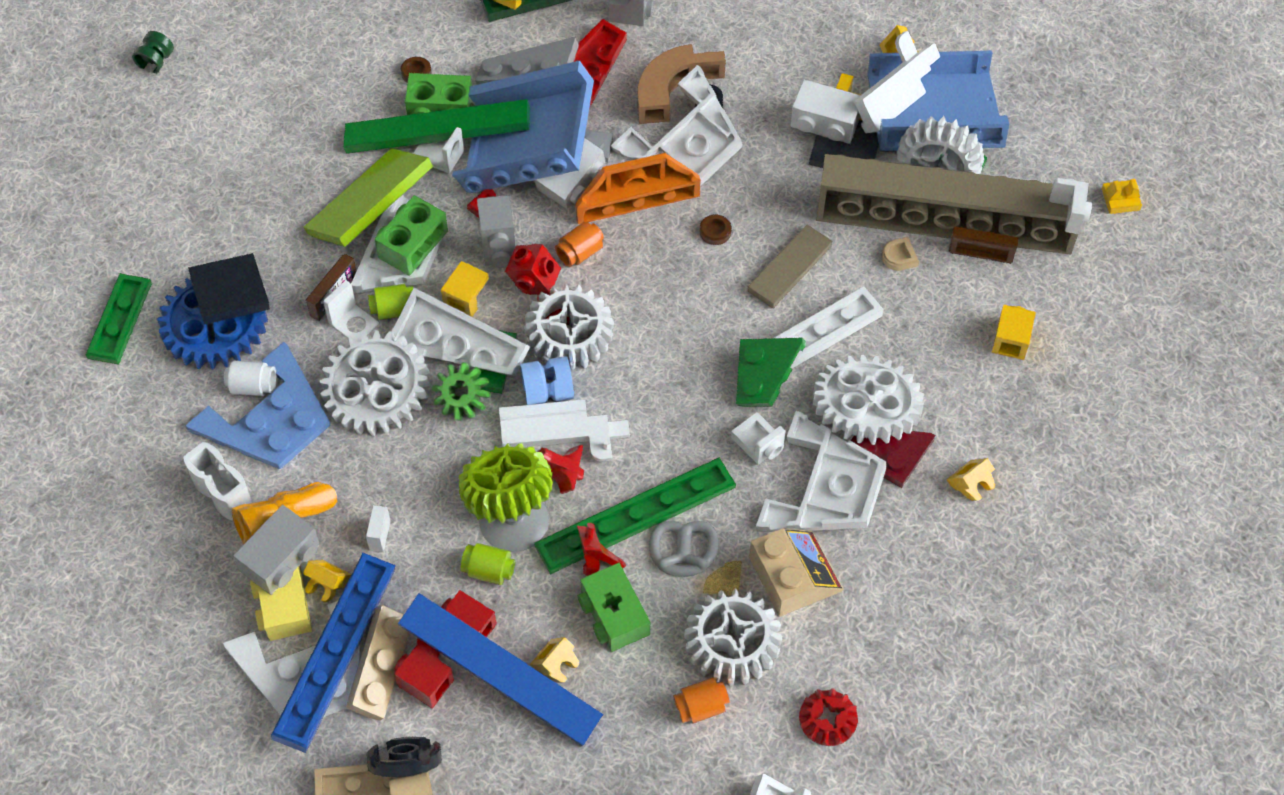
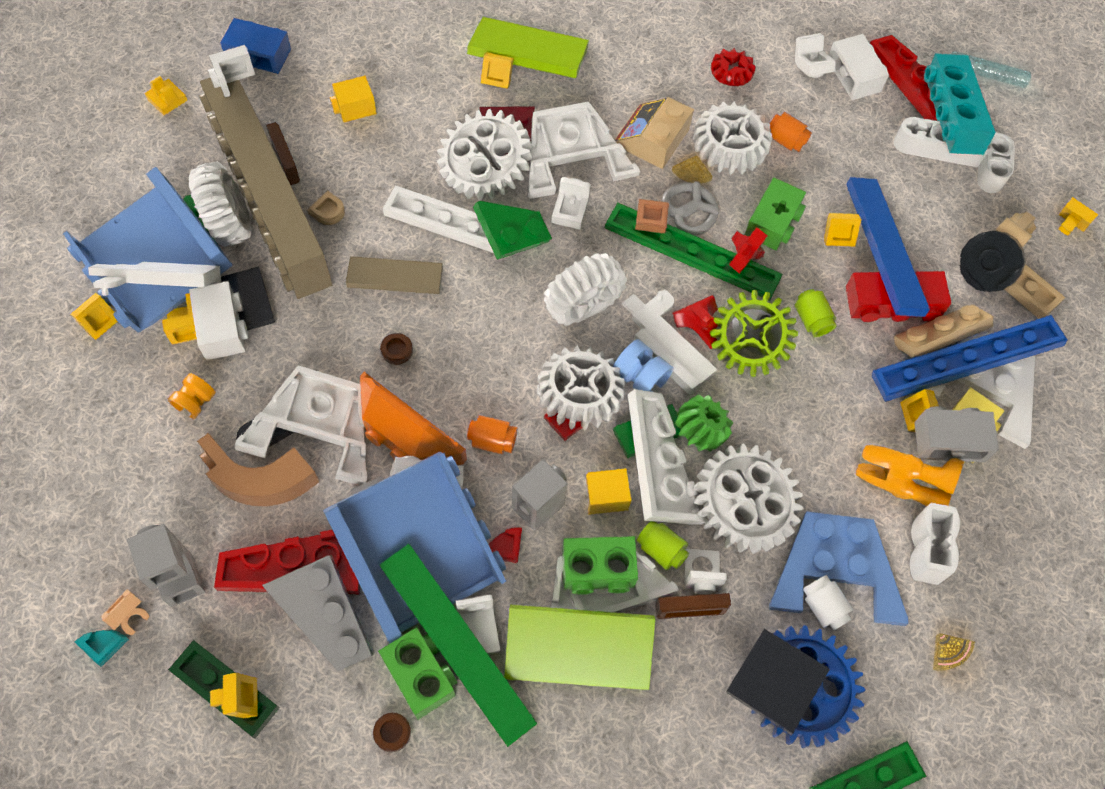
camera: 130 degrees left, 5 degrees up
(139, 442) = (951, 651): none -> clear yellow tile
(378, 528) = (858, 402): white tile -> none
(533, 269) = (544, 438): red brick -> none
(652, 377) = (585, 289): none -> white gear
(694, 495) = (652, 216): none -> nougat tile
(774, 74) = (192, 395): none -> light orange wheel
(984, 525) = (529, 46): none -> lime tile
(1138, 288) = (266, 45): none -> blue brick

